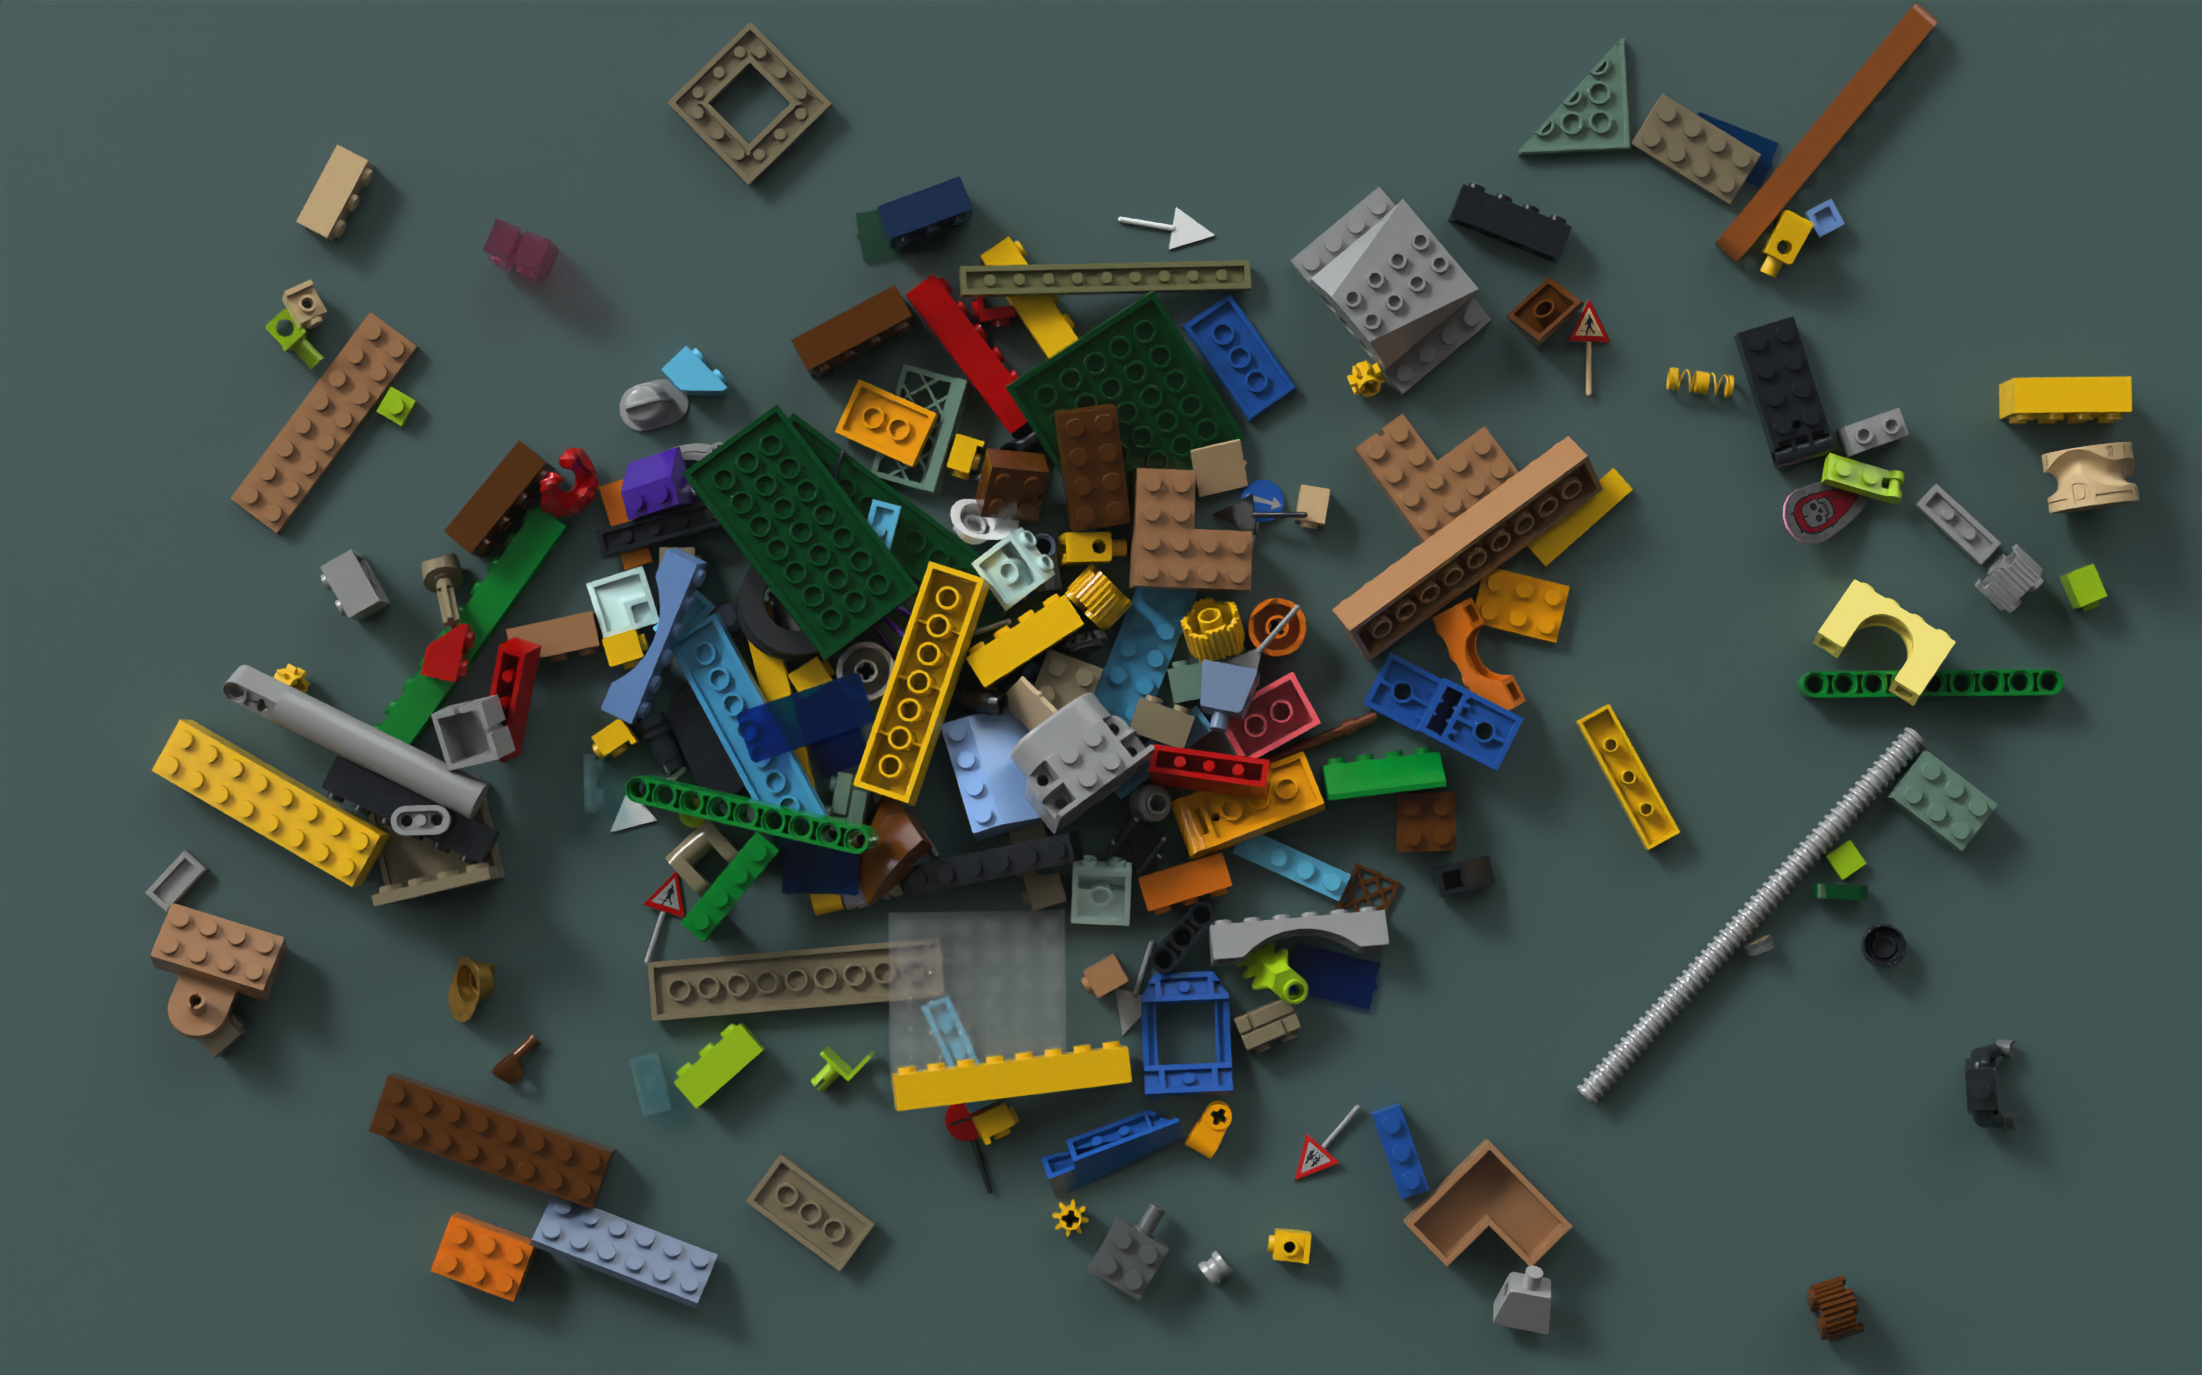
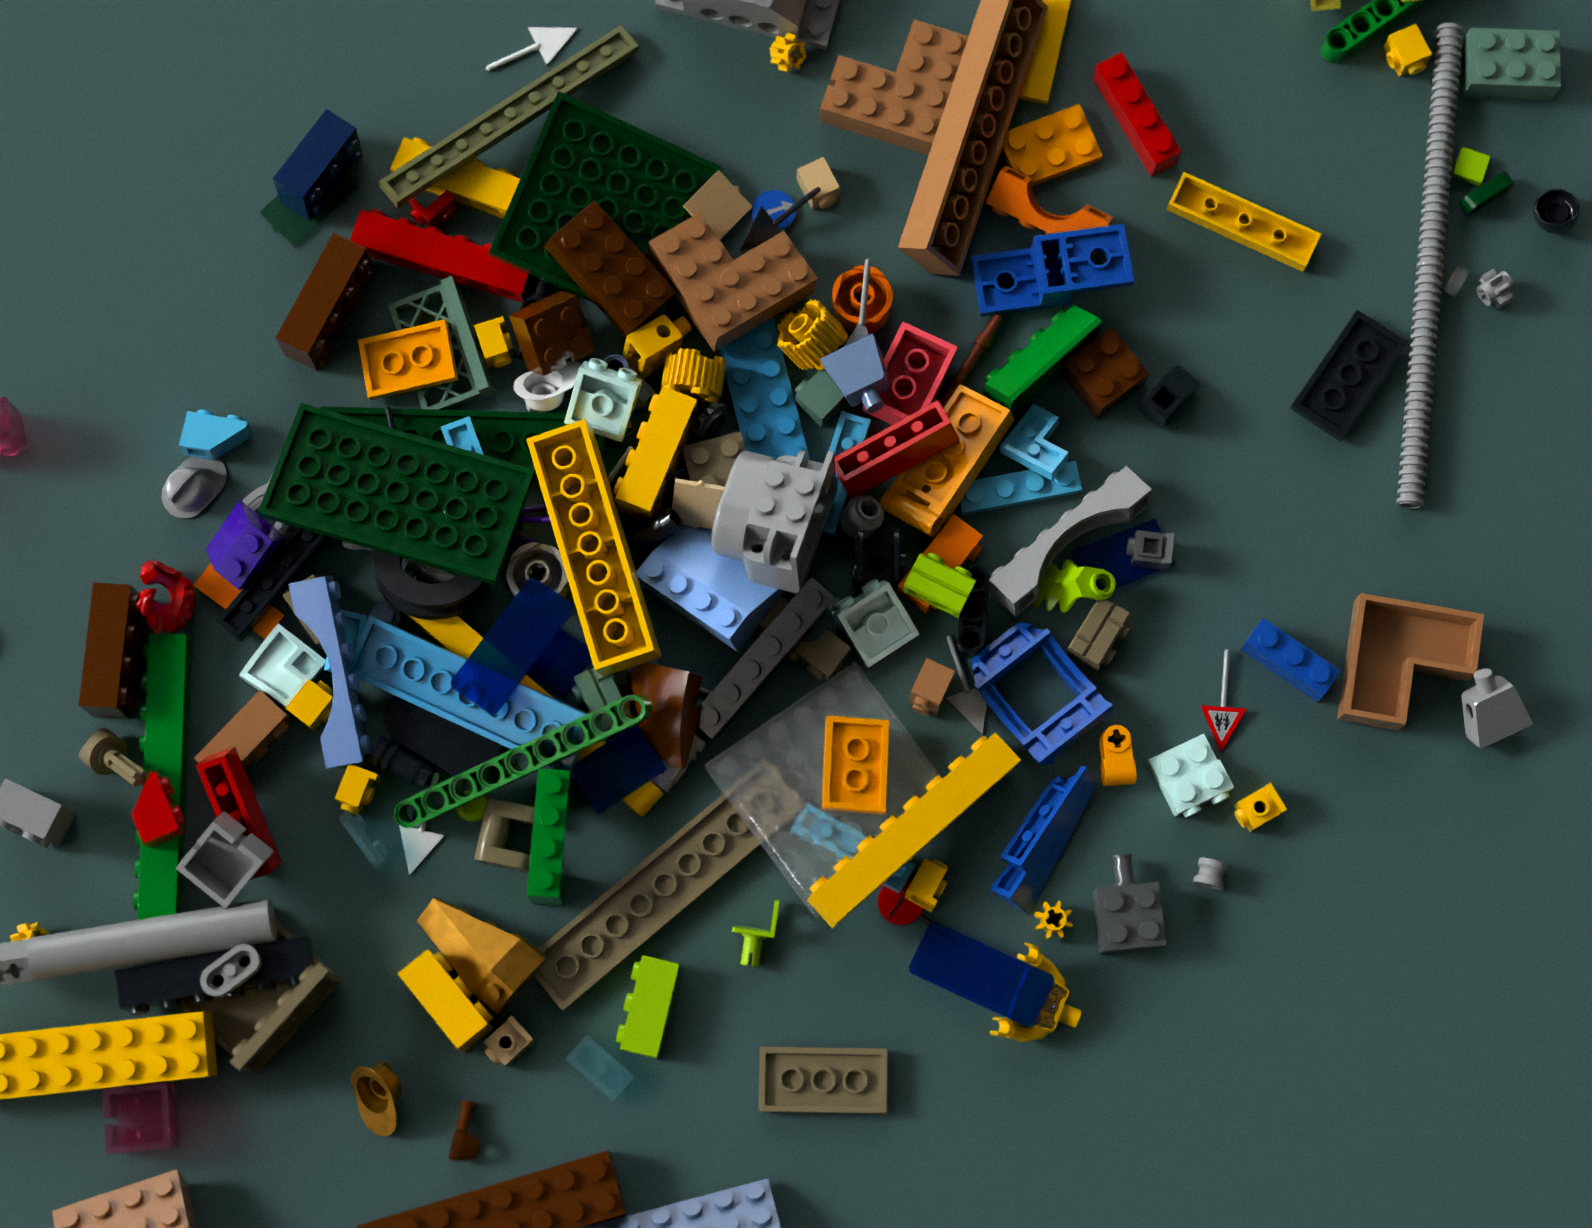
camera: 35 degrees left, 10 degrees down
(176, 880) = (44, 1193): light grey tile -> none
(284, 882) = (144, 1120): none -> clear pink piece
(570, 953) = (447, 999): none -> yellow brick
(606, 1015) = (520, 1042): none -> tan brick
(621, 941) = (484, 956): none -> pearl gold wedge
(667, 900) = (501, 897): piece -> none
(804, 106) = (70, 141): dark tan plate -> none
(812, 674) = (489, 611): yellow brick -> none
(985, 1221) = (981, 974): none -> clear blue piece
(1002, 995) = (855, 765): none -> light orange plate
(1011, 1270) = (1053, 1009): none -> yellow torso
(1161, 722) = (831, 434): dark tan brick -> none
(1168, 903) = (939, 584): none -> lime brick
(1239, 357) = (670, 109): blue tile -> none
(1257, 1183) = (1190, 776): none -> light aqua plate
(1321, 839) = (1029, 443): none -> medium azure plate
(1355, 988) = (1151, 549): none -> dark grey window
(1376, 875) = (1097, 449): reddish brown window -> none
(1607, 628) = (1136, 114): none -> red brick
(1617, 959) = (1348, 375): none -> black plate
(1786, 974) = (1495, 288): none -> light grey gear
(1865, 731) = (1407, 51): none -> yellow brick

